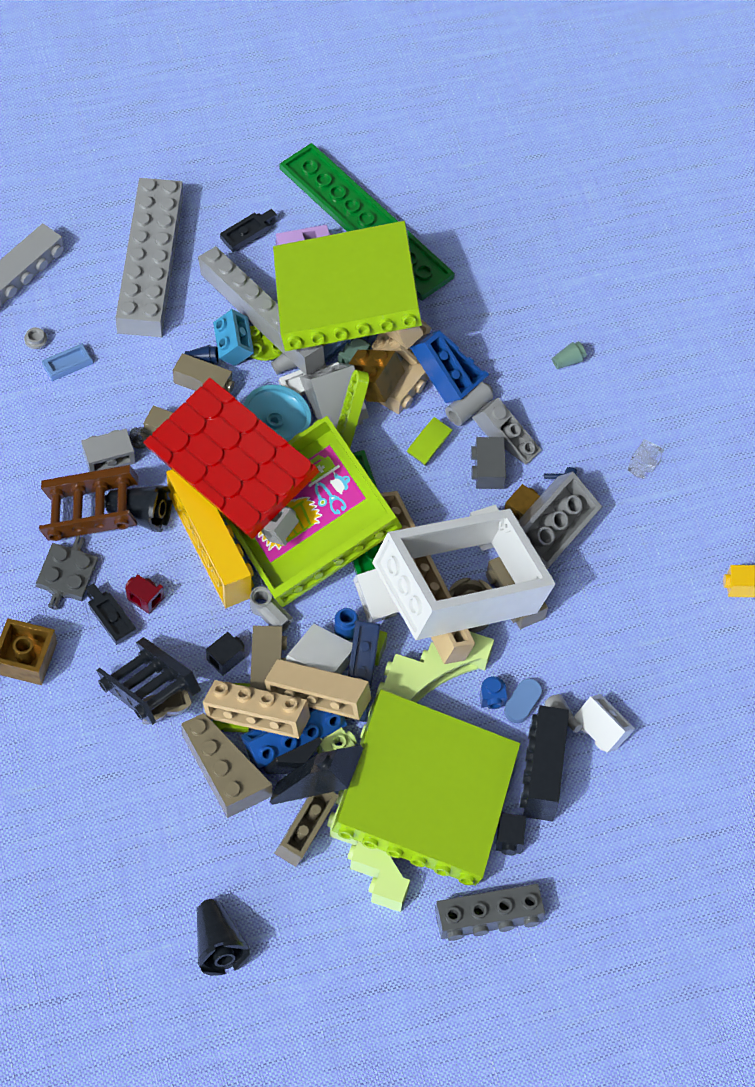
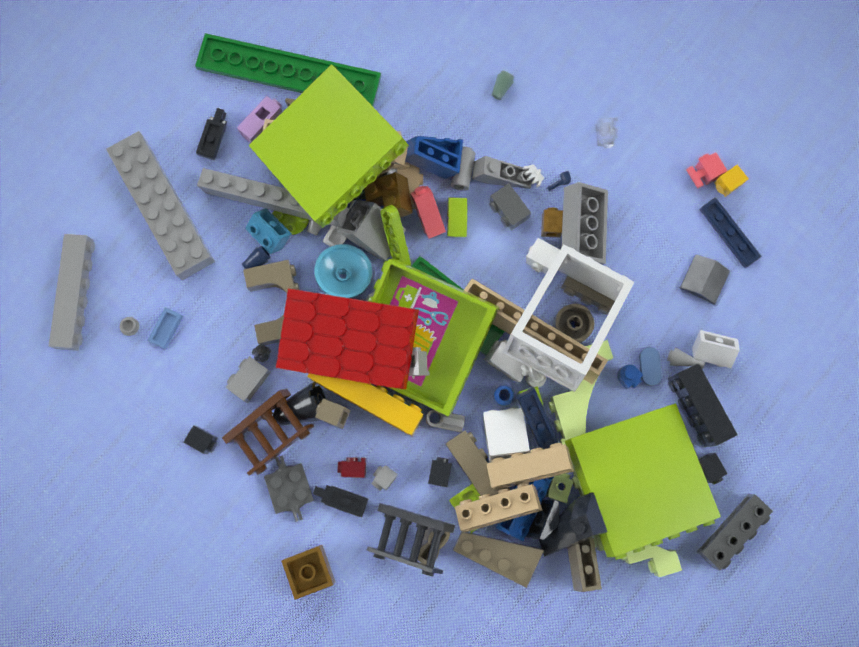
camera: 30 degrees left, 20 degrees up
(19, 474) = (201, 440): none -> black brick
(164, 520) = (332, 413): none -> dark tan slope
(166, 622) = (383, 477): none -> light grey plate
(394, 627) = (533, 377): none -> white arm
(402, 412) = (427, 211): none -> coral brick
(539, 452) = (534, 174): none -> white piece
(647, 659) = (705, 278): none -> slope
(708, 633) = (730, 232): none -> dark blue tile
(729, 553) = (708, 169): none -> coral brick

